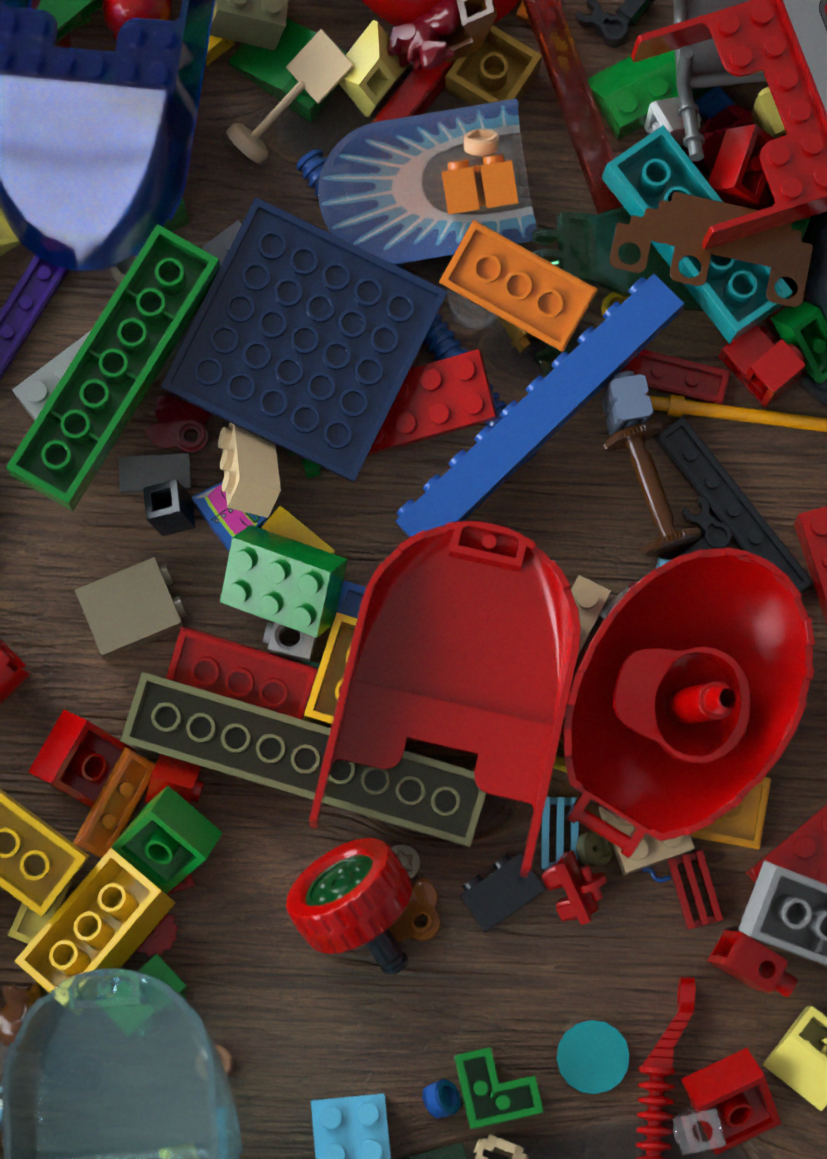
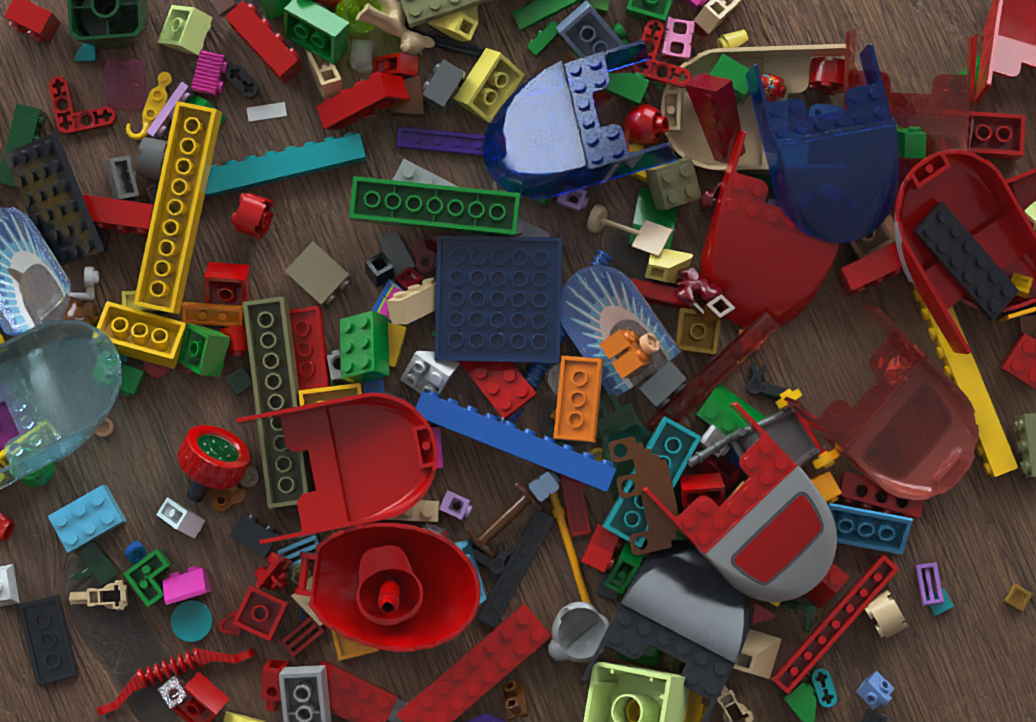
camera: 70 degrees right, 5 degrees up
(205, 468) = (408, 278): none -> dark red tile
(210, 158) = (582, 200): none -> lavender brick
(241, 809) = (239, 381): none -> clear green tile
(368, 505) = (428, 374): none -> white slope
(419, 1000) = (180, 518): none -> white slope
(533, 1037) = (186, 585): none -> dark pink slope
(552, 158) = (661, 385): none -> dark grey brick
(599, 542) = (447, 505): none -> lavender brick
(626, 994) = (225, 625): none -> red tile
(631, 935) = (261, 613): none -> red brick

